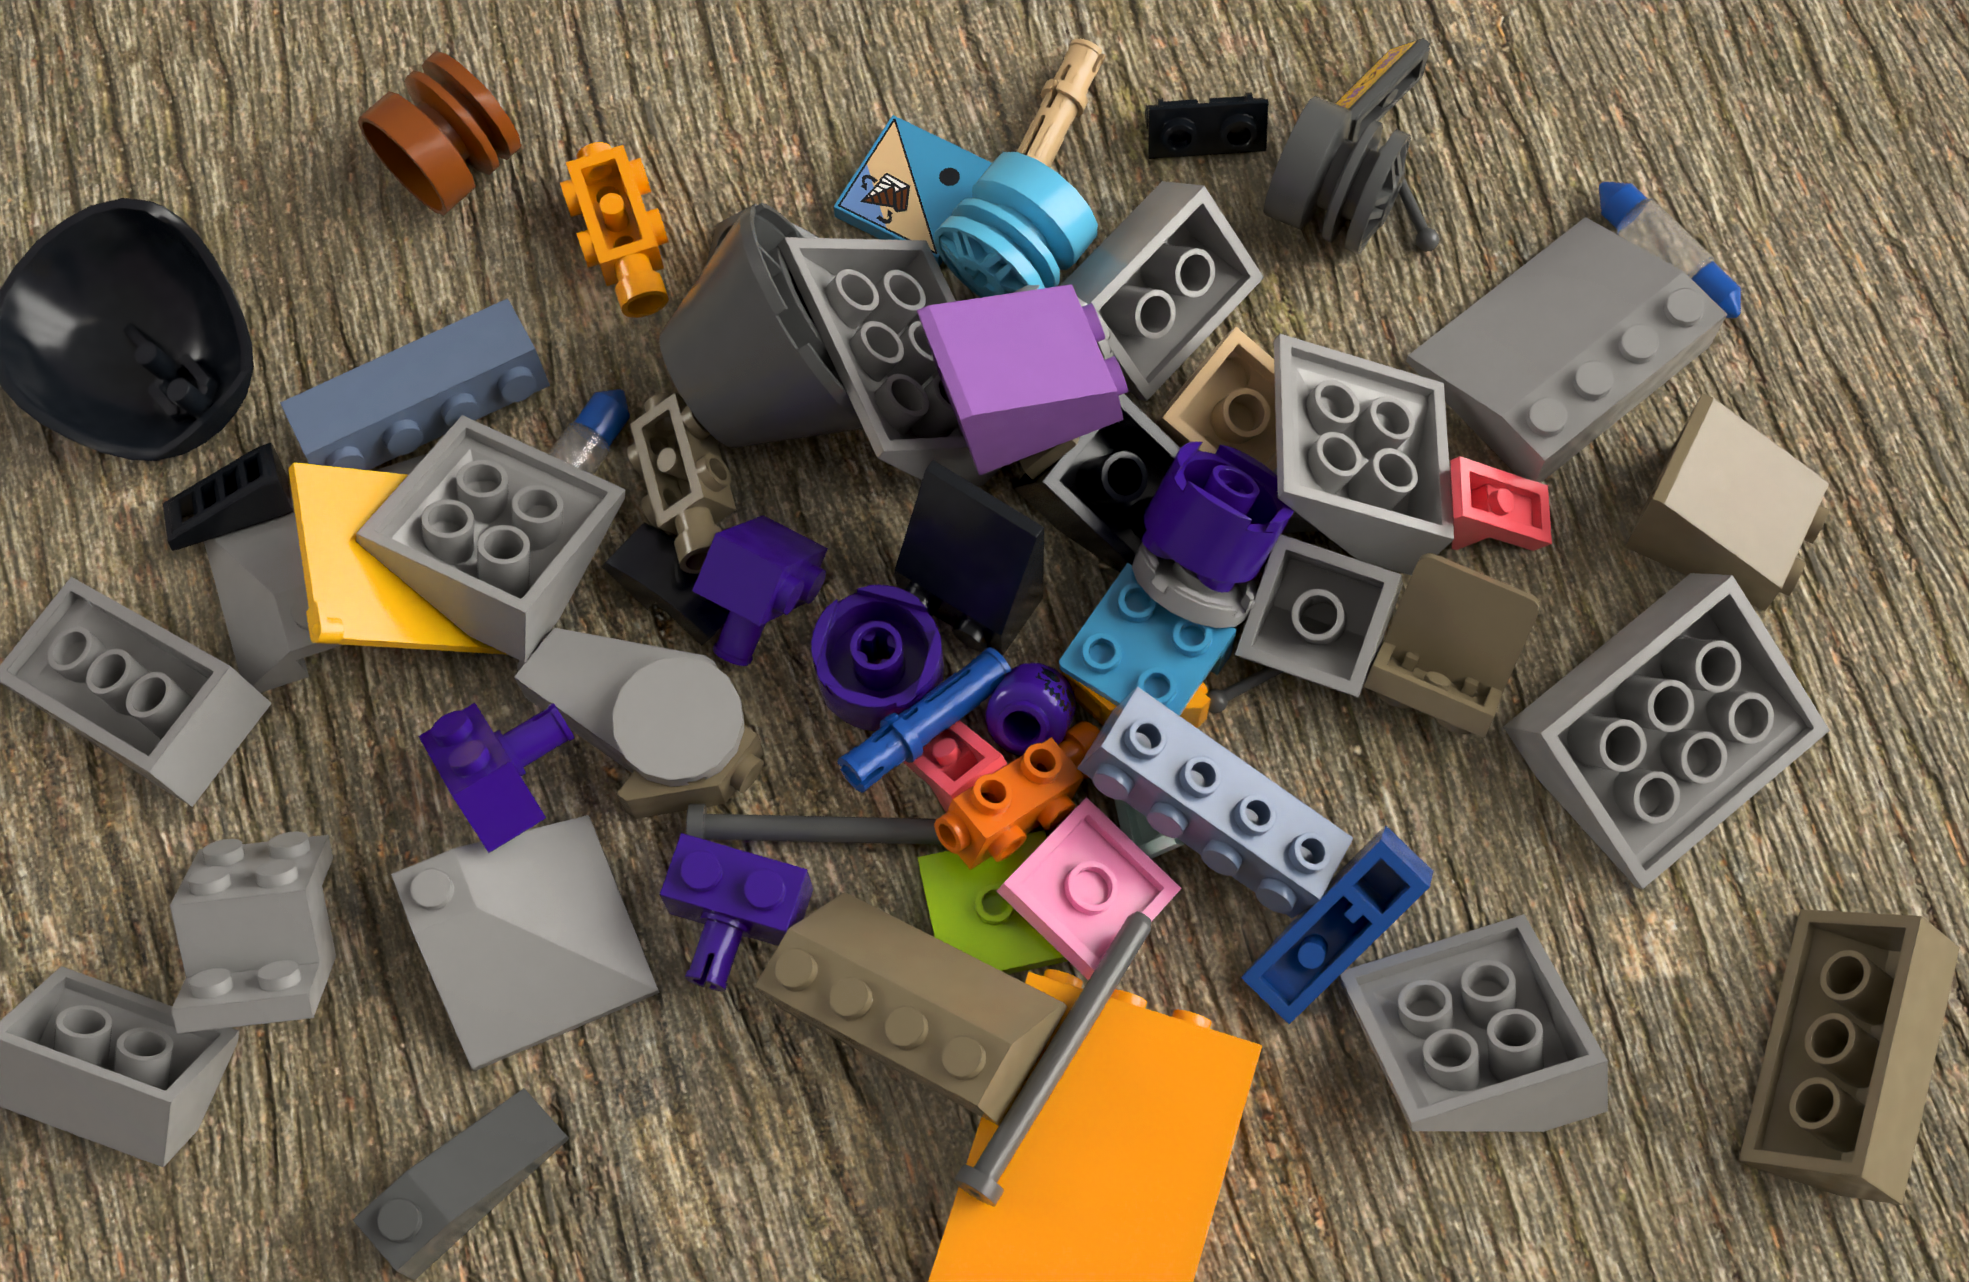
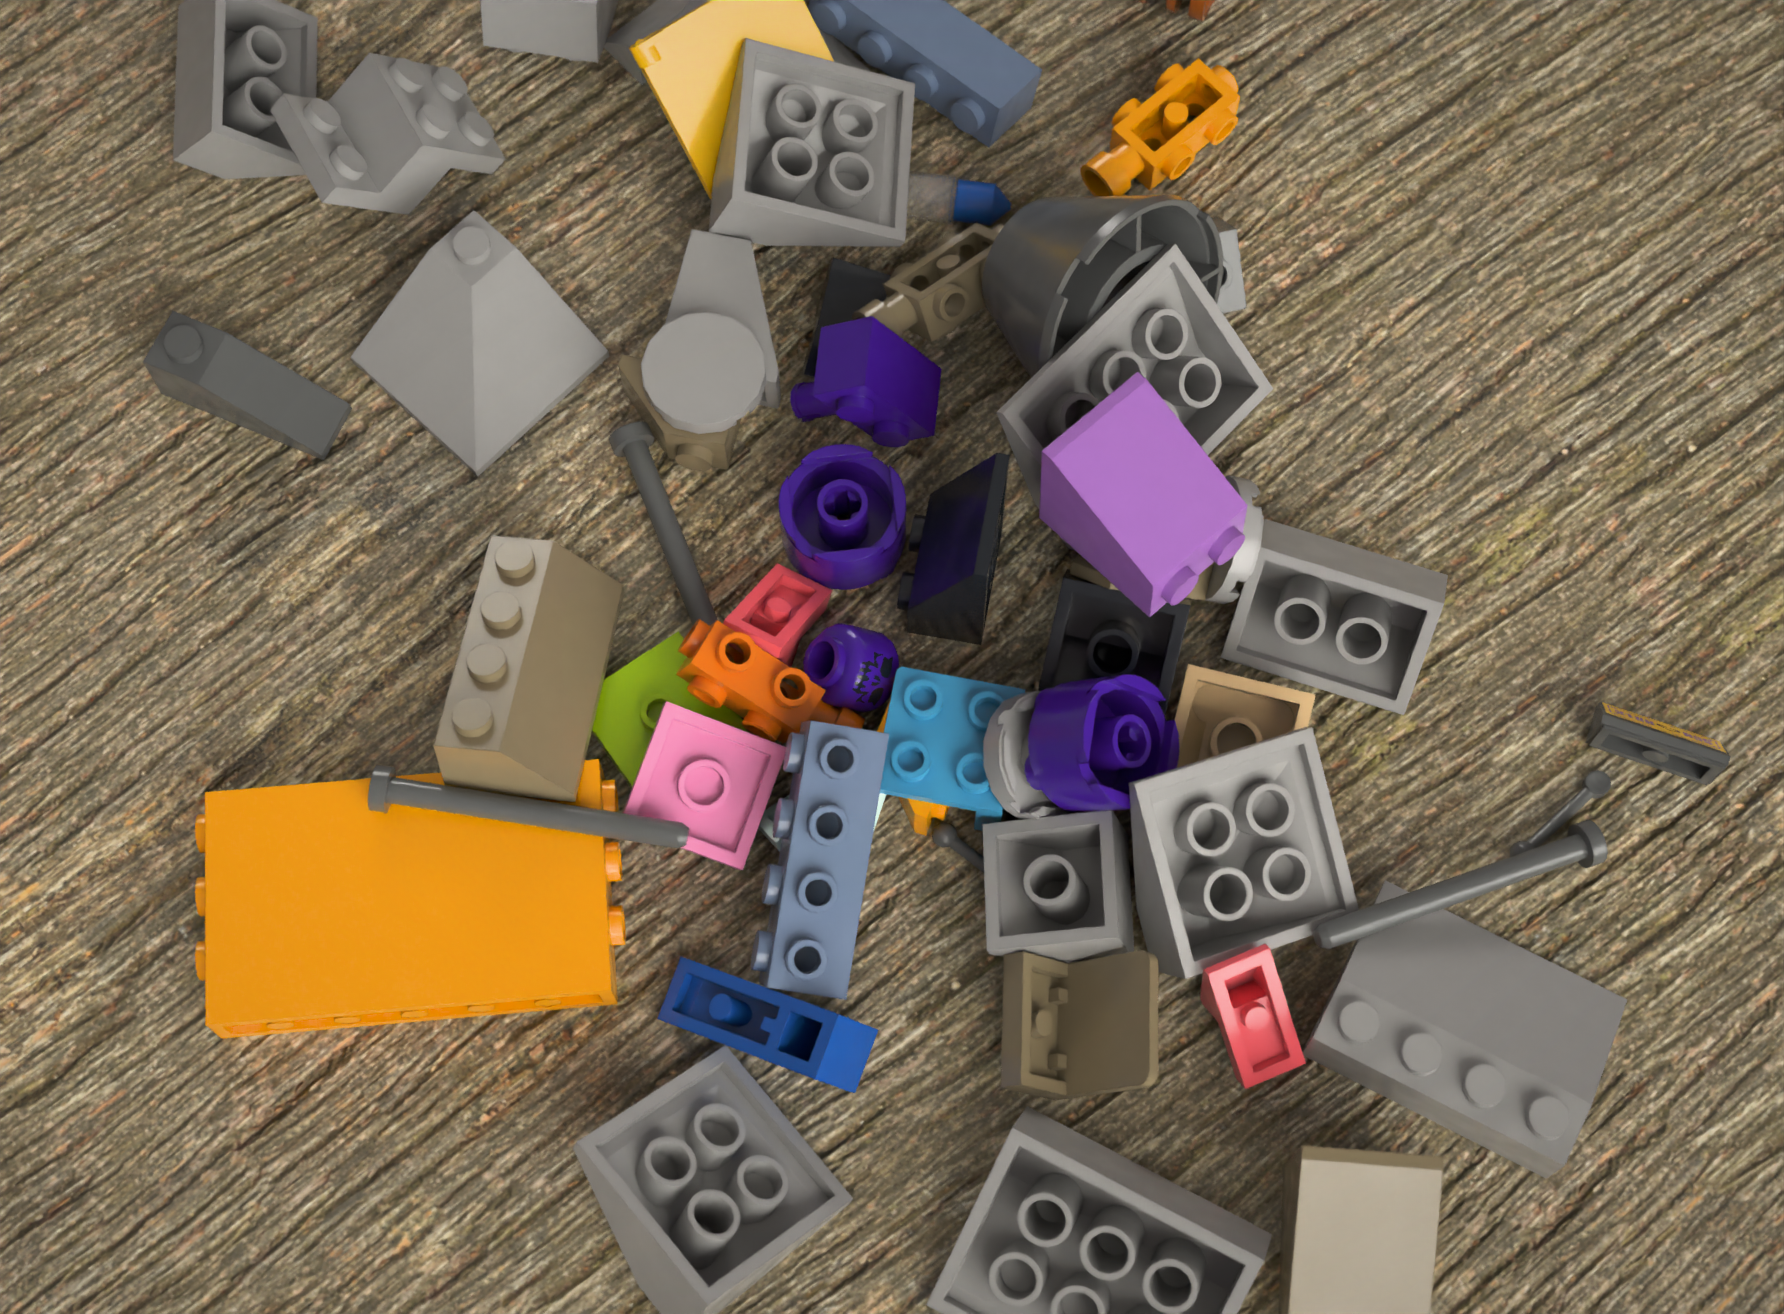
camera: 65 degrees right, 0 degrees up
(487, 768) = (596, 243): dark purple brick -> none
(734, 898) = (571, 491): dark purple brick -> none
(906, 734) = (787, 572): blue pin -> none
(908, 184) = (1335, 368): tile -> none
(1016, 228) = (1318, 461): medium azure wheel -> none
(1062, 101) = (1479, 456): tan pin -> none
(1209, 128) = (1526, 584): black hinge -> none
(1337, 174) = (1531, 729): dark grey wheel -> none
(1442, 187) = (1583, 845): none -> dark grey bar
(1655, 231) = (1629, 1096): piece -> none

